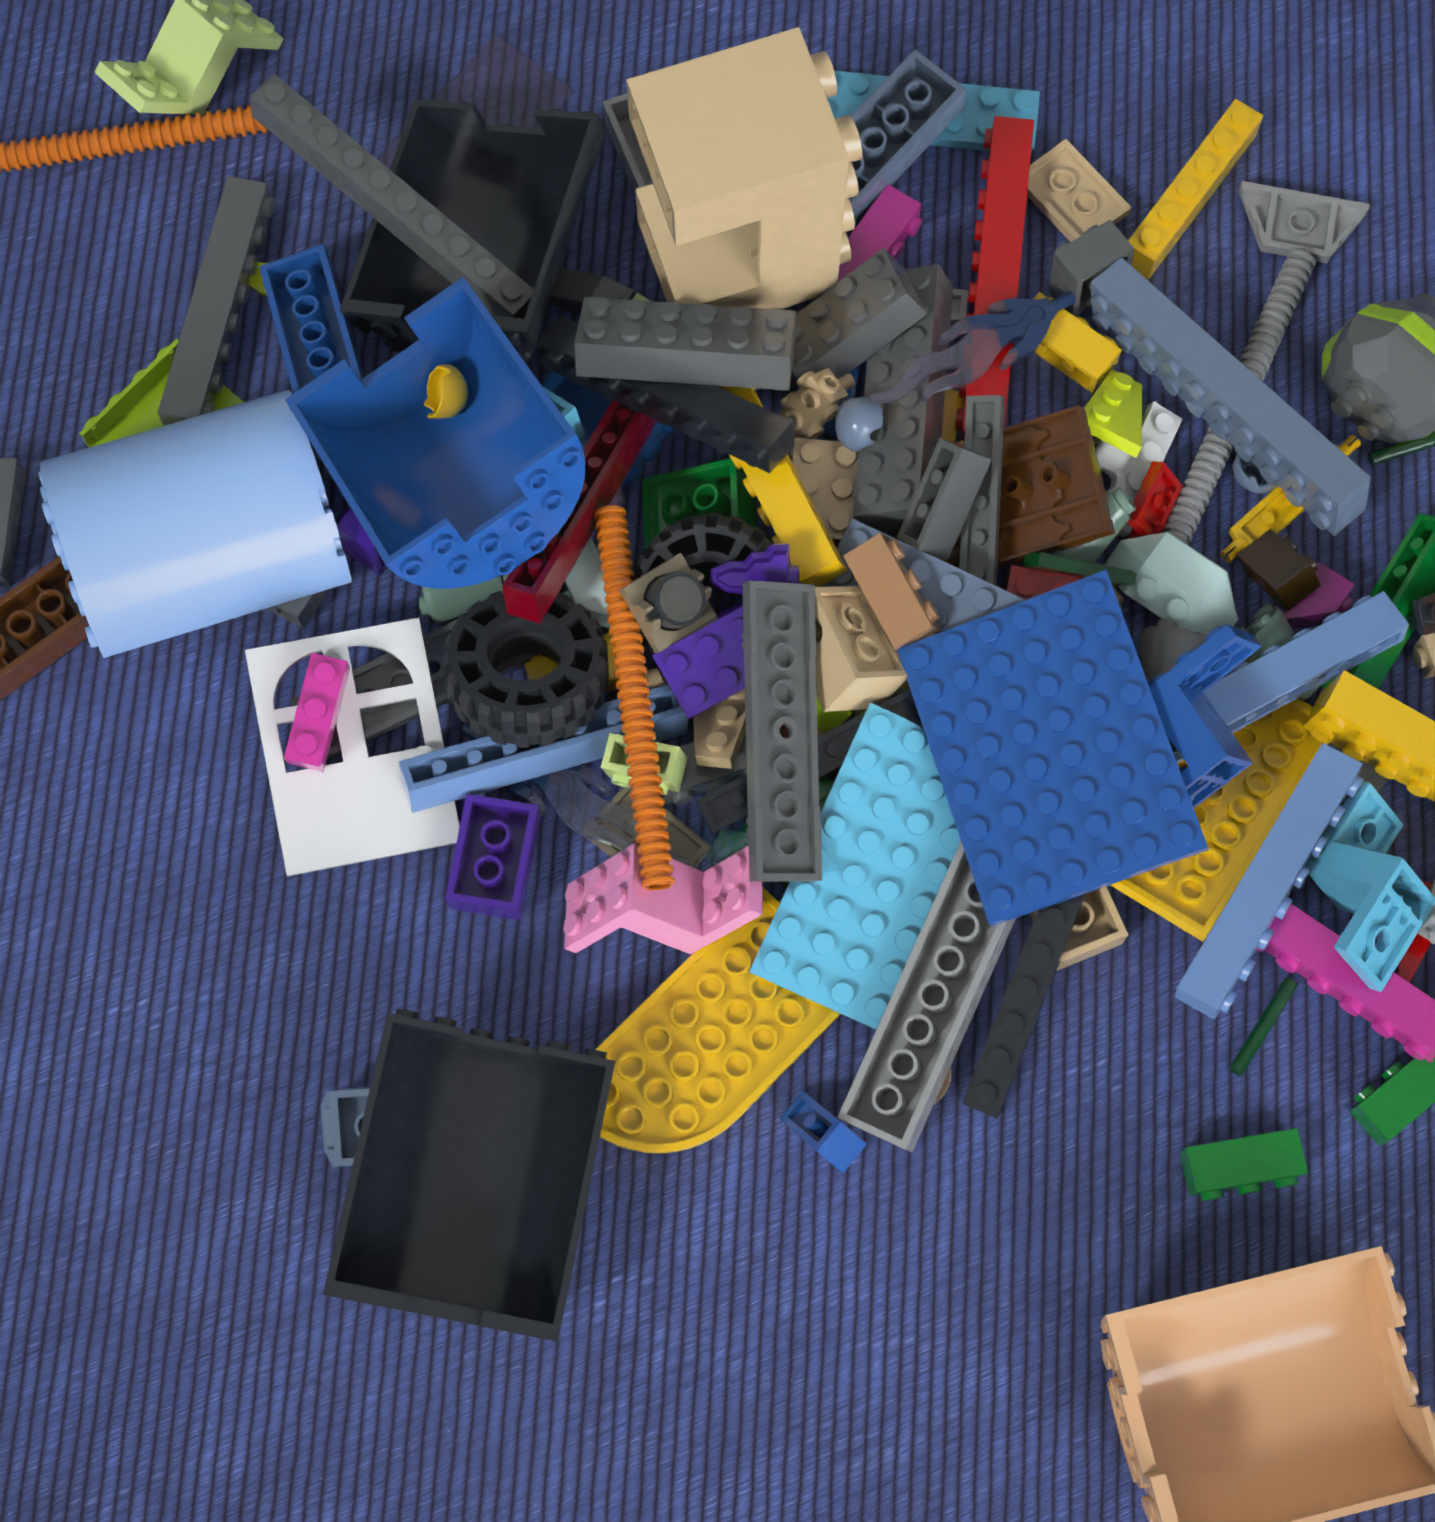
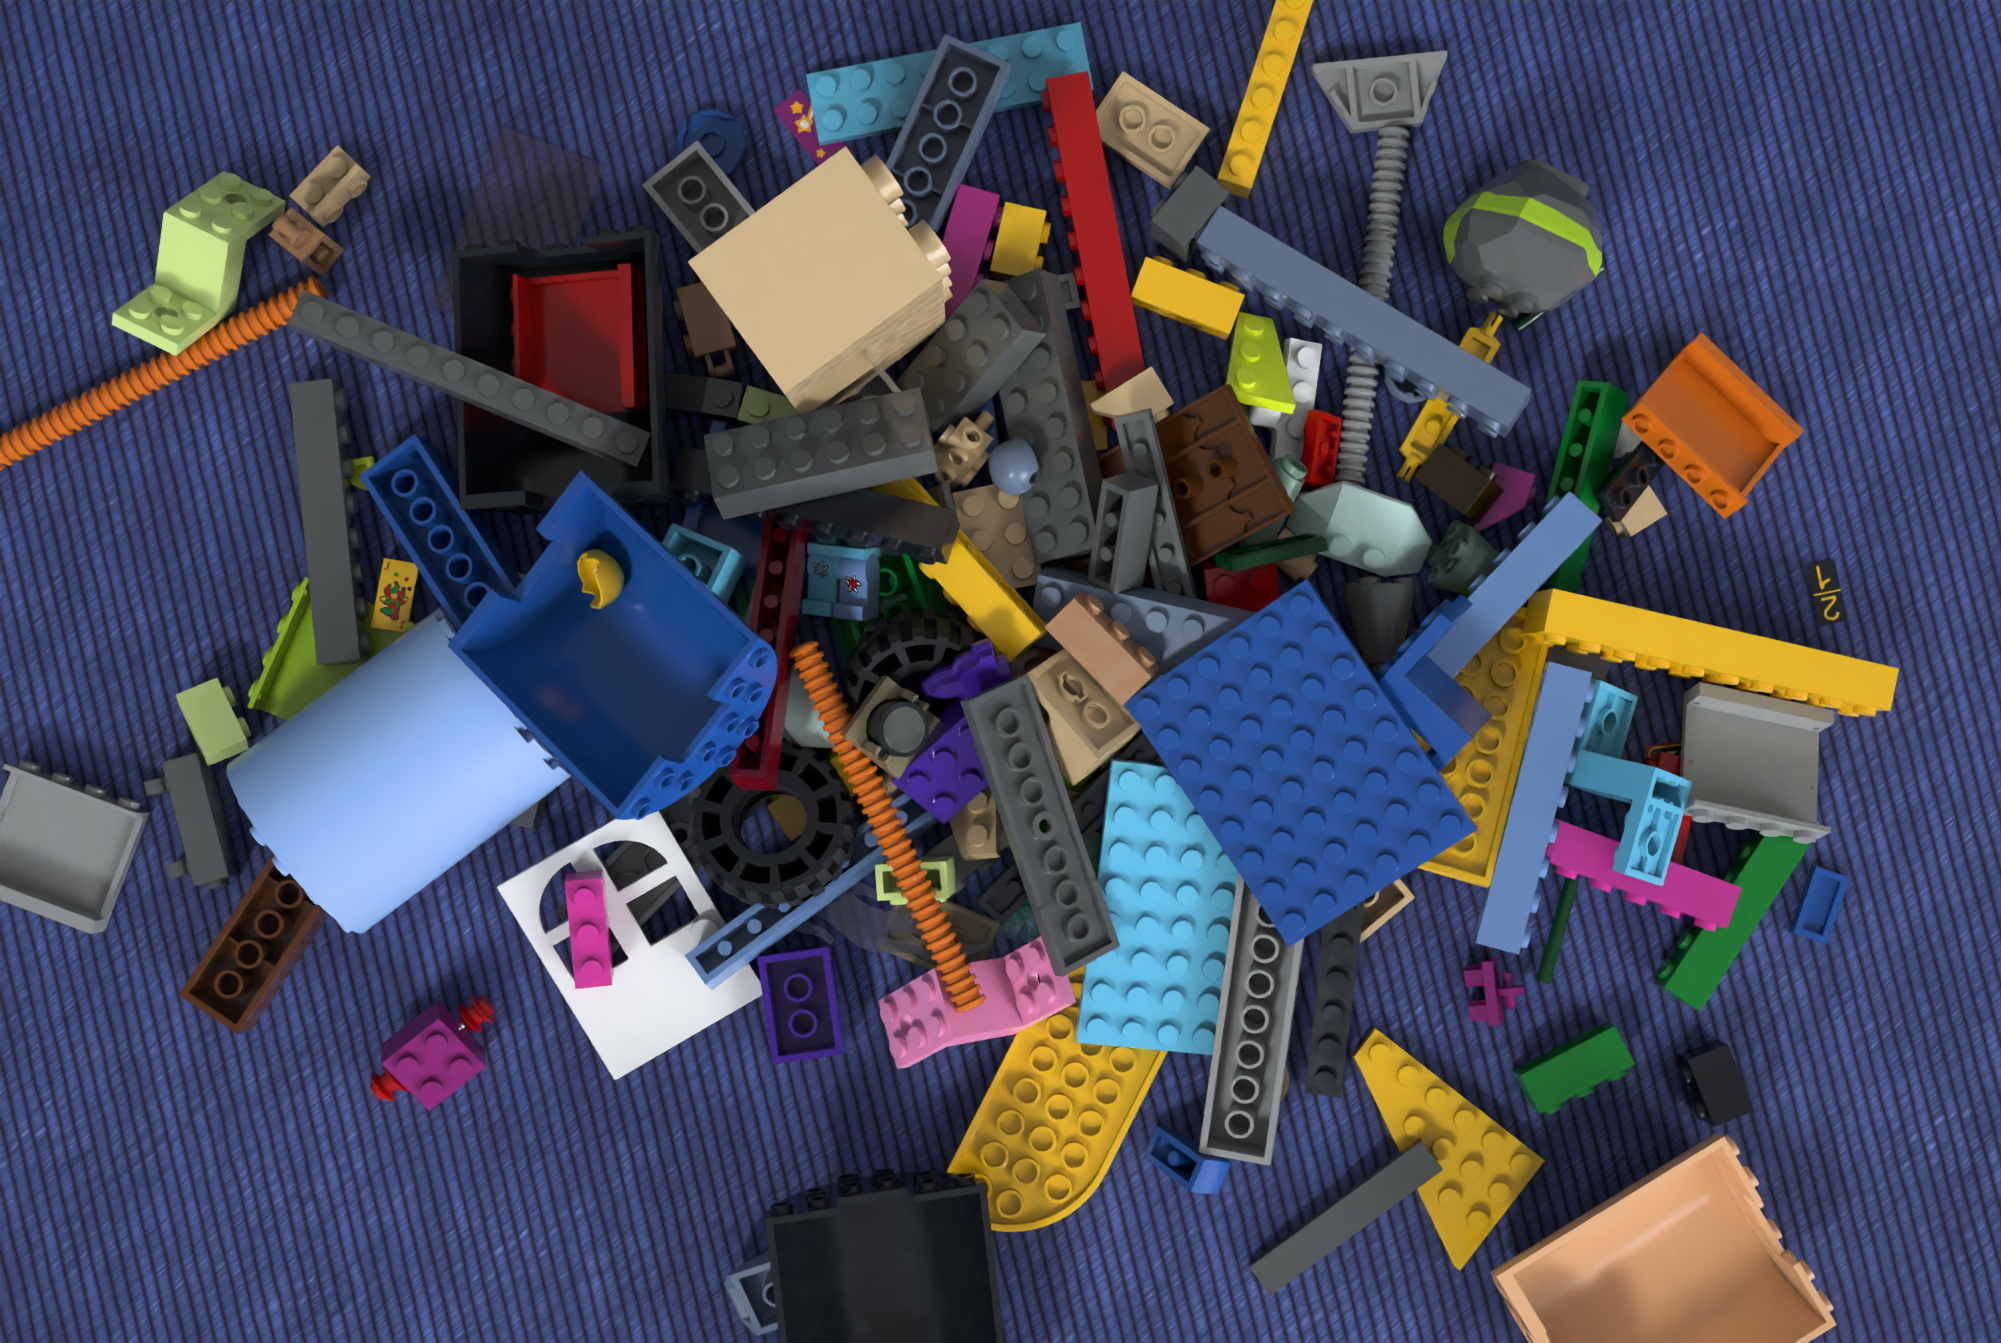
camera: 15 degrees left, 15 degrees up
(41, 433) = (213, 722): none -> yellowish green brick
(125, 794) = (434, 1053): none -> magenta brick
(252, 380) = (395, 595): none -> yellow tile
(289, 62) = (305, 241): none -> medium nougat brick
(327, 38) = (331, 186): none -> tan bracket
(507, 204) = (584, 337): none -> red panel
(619, 239) = (708, 328): none -> medium nougat brick
(668, 477) = (842, 580): none -> hips
(929, 243) = (1019, 241): none -> yellow brick
(966, 1240) = (1345, 1216): none -> dark grey tile
(986, 336) = (1110, 334): clear purple piece -> none
(1007, 386) = (1136, 394): none -> tan slope
(1097, 1214) = (1478, 1157): none -> yellow wing
(1176, 1077) = (1491, 1007): none -> magenta hips
(1387, 1221) = (1714, 1083): none -> black brick

